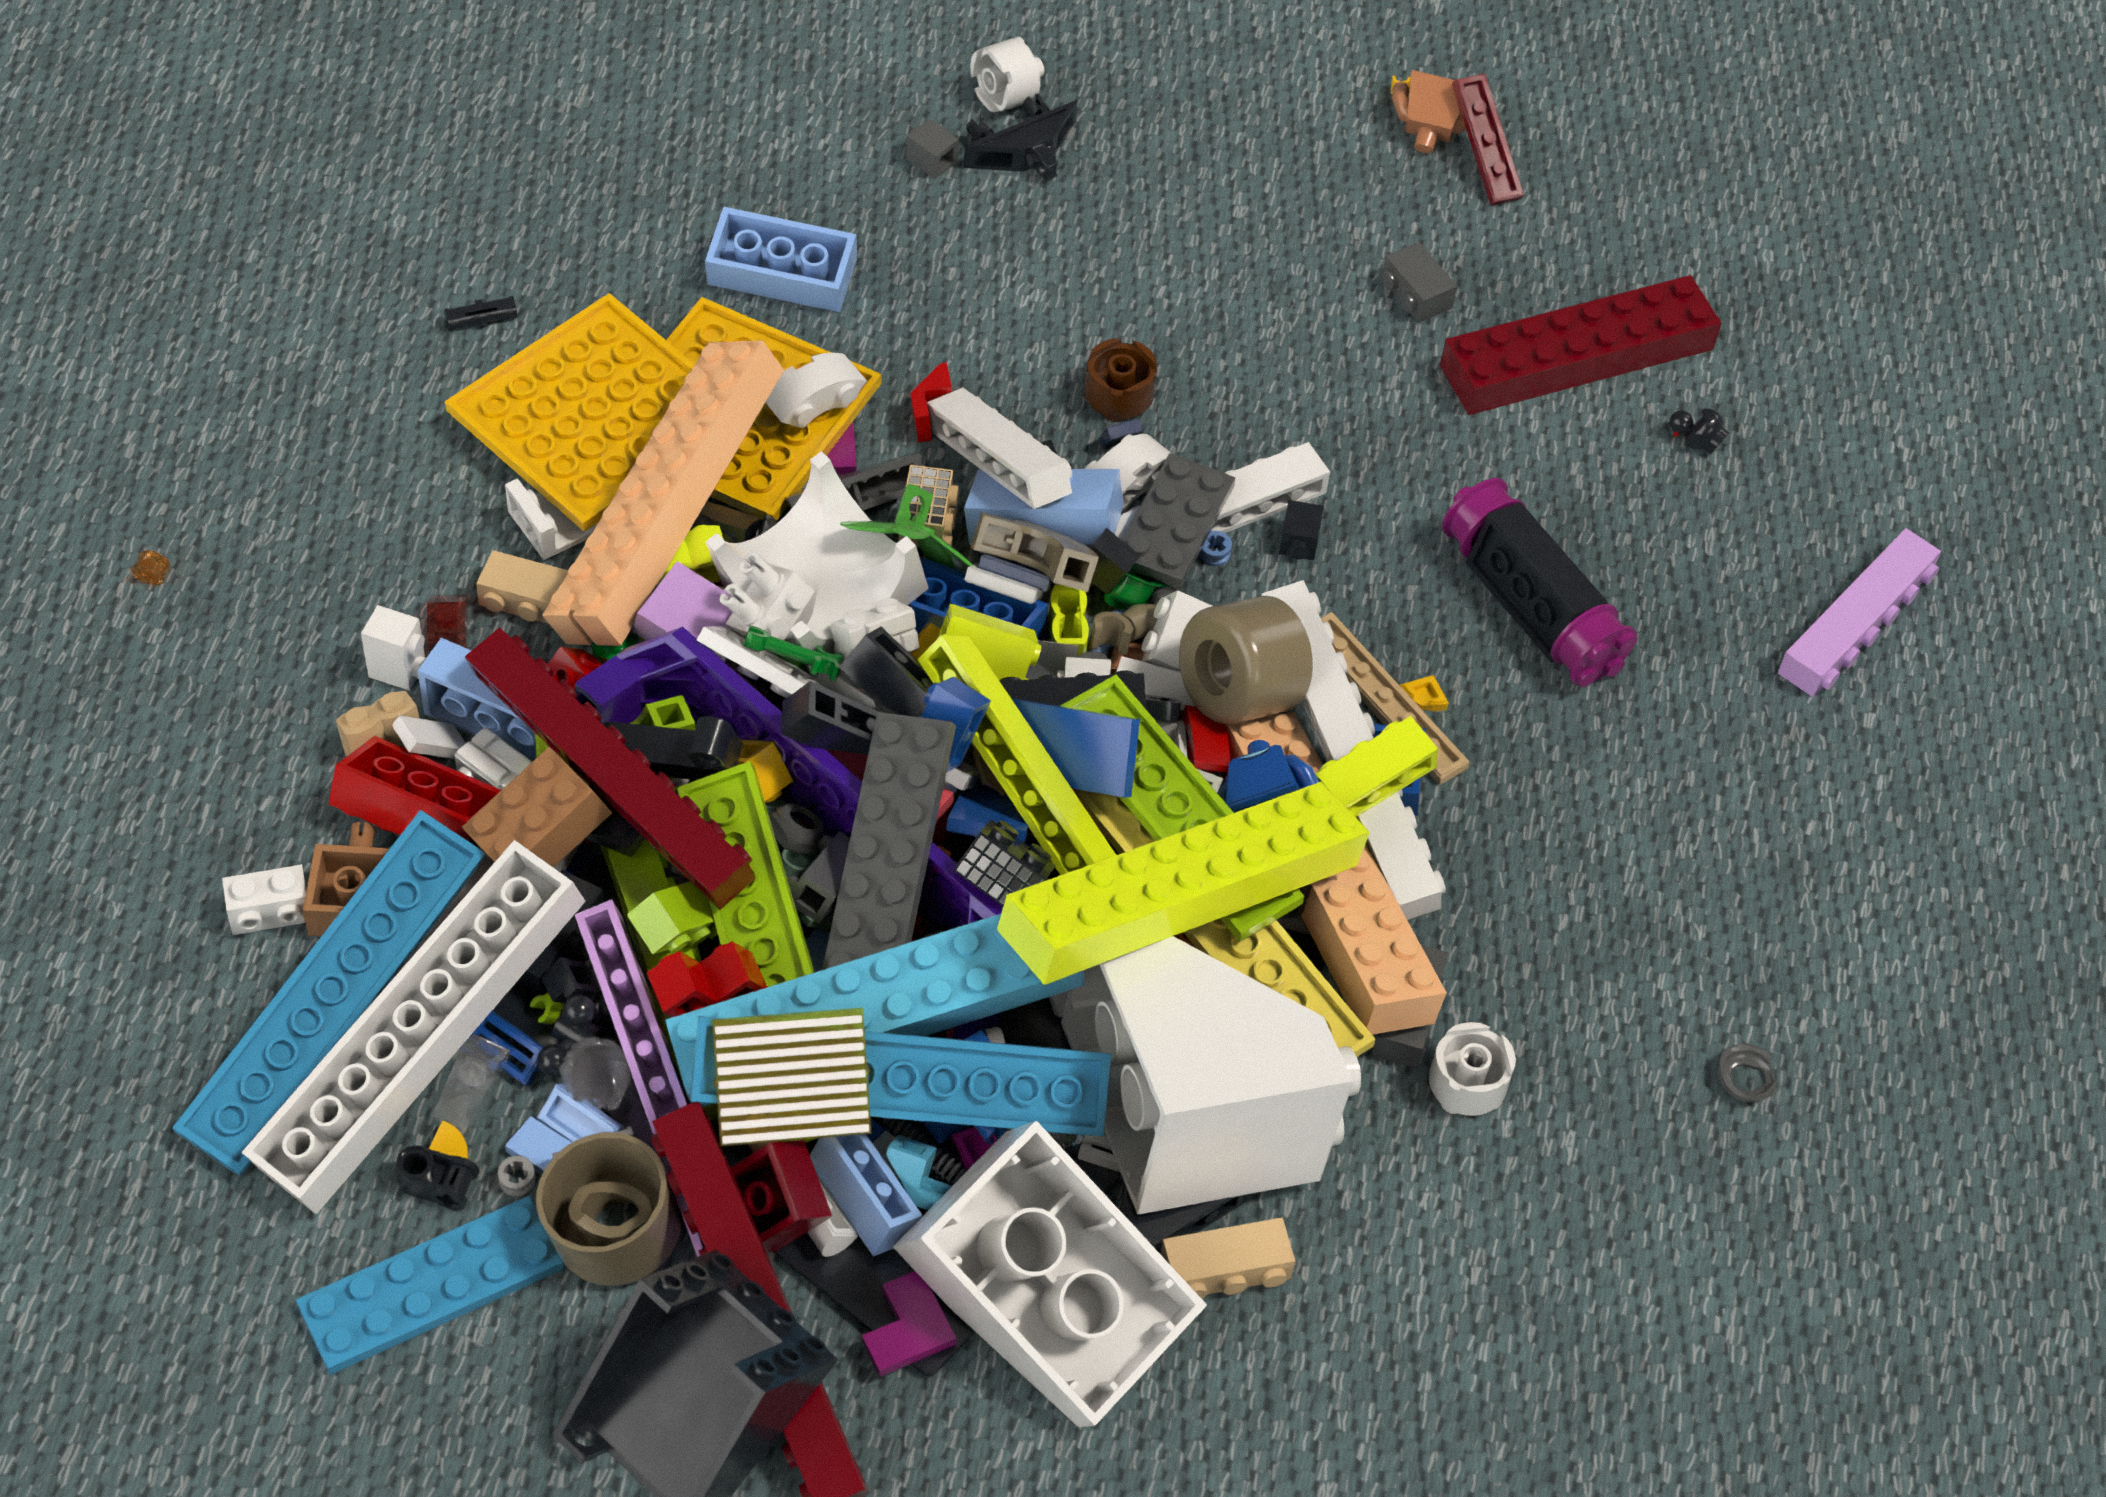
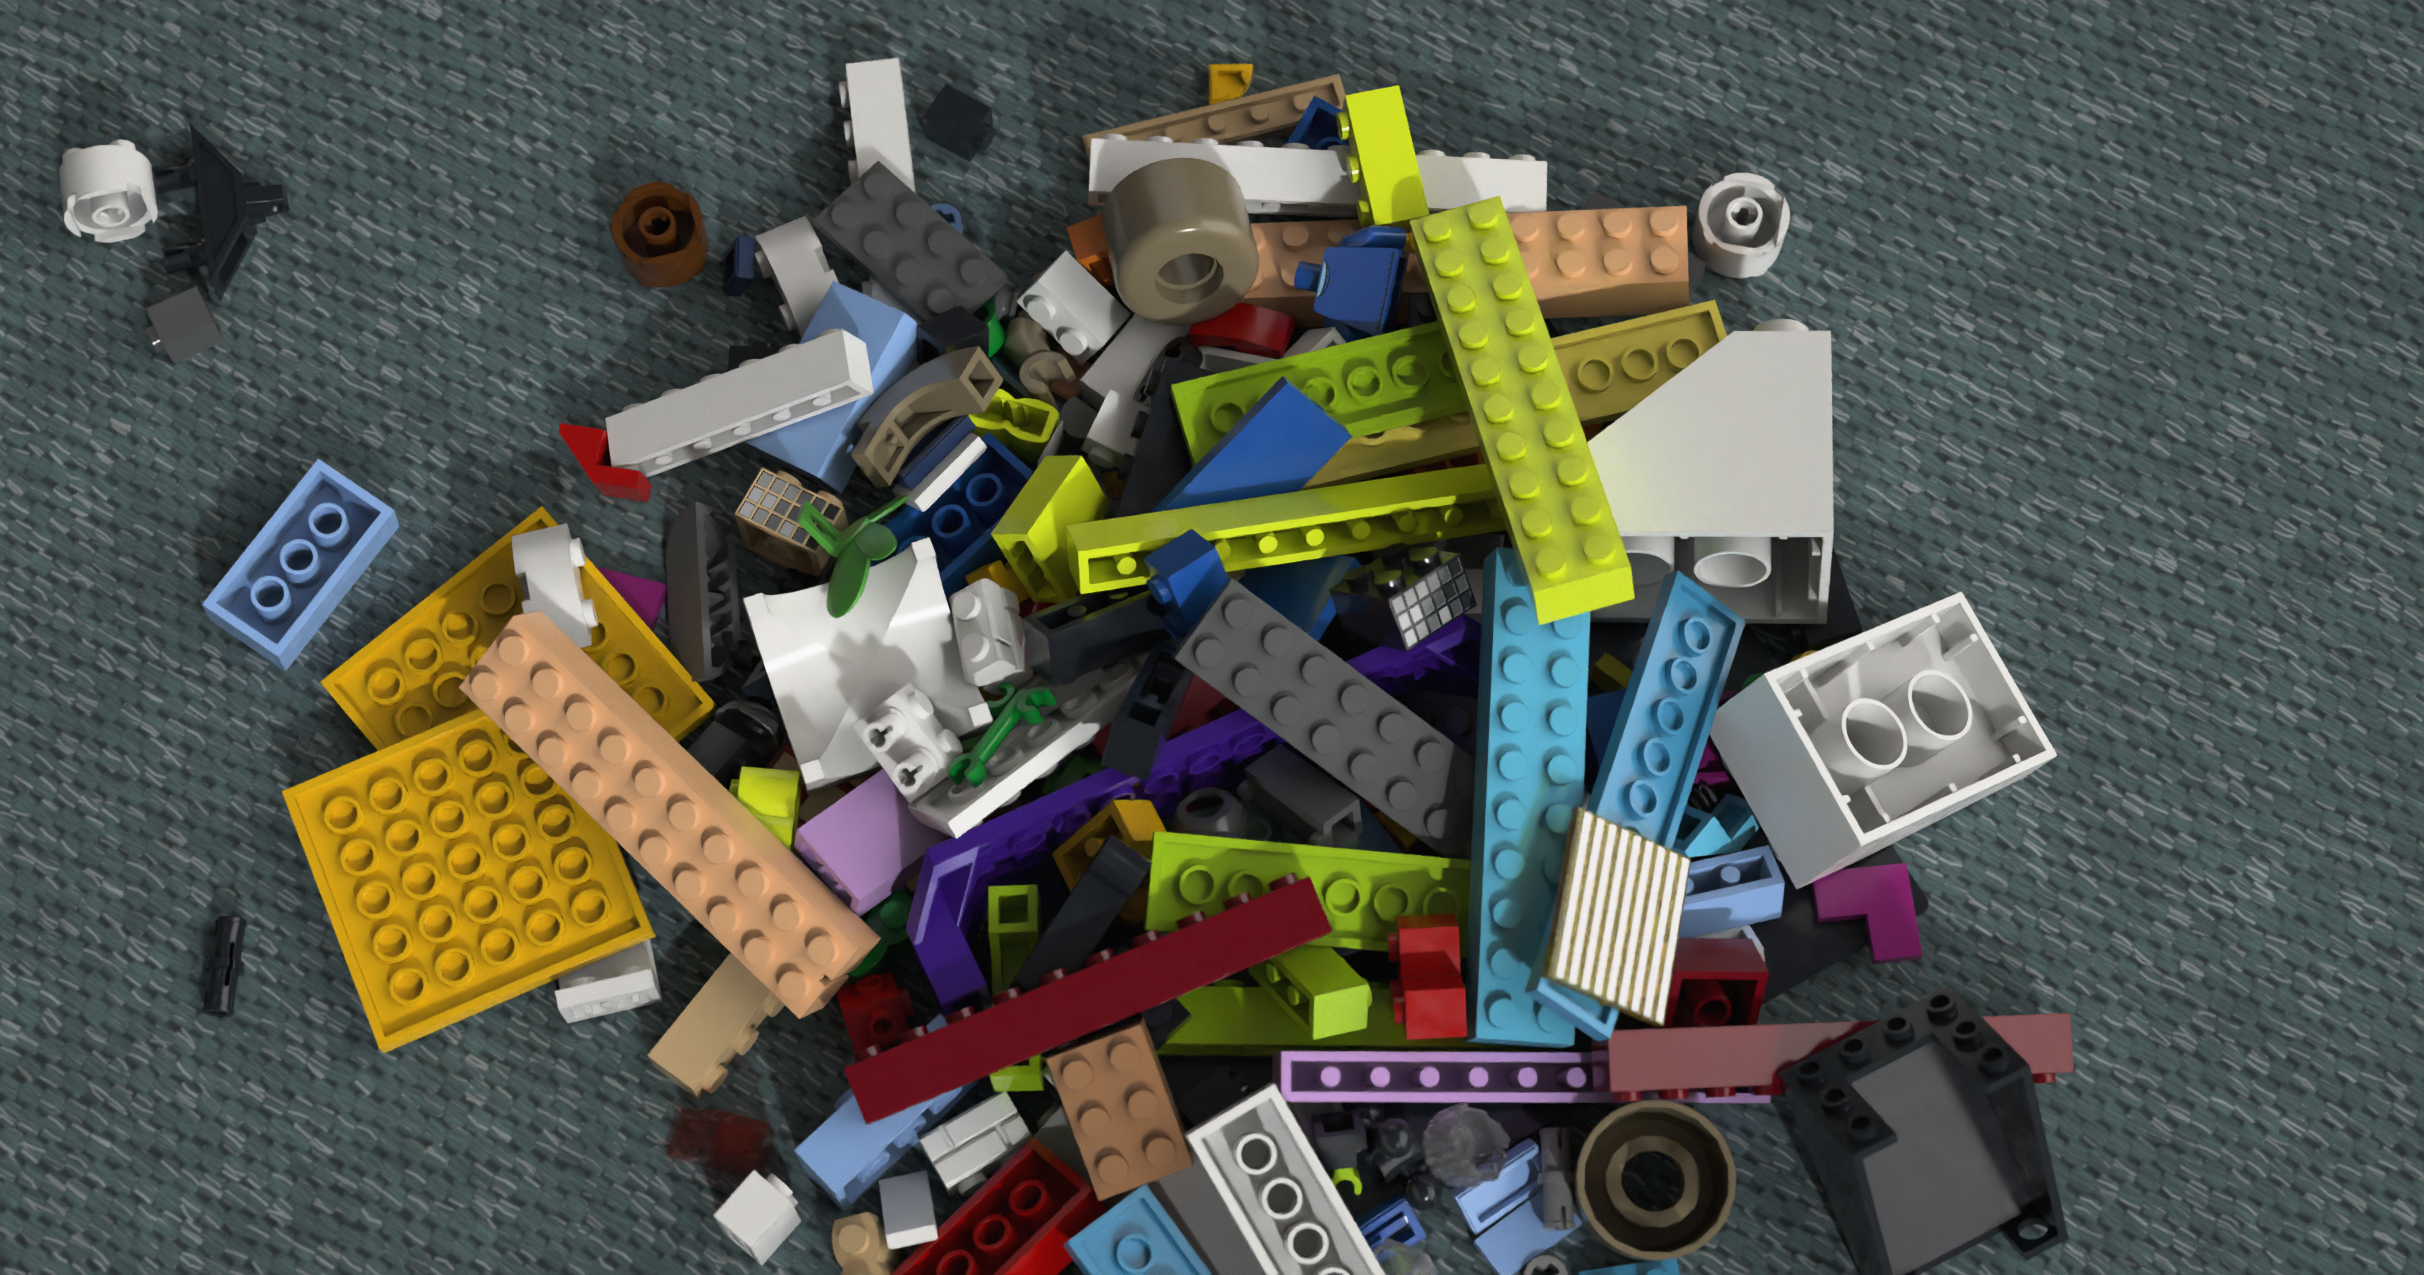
camera: 65 degrees left, 15 degrees up
(1232, 1257) = (1888, 552): tan brick -> none

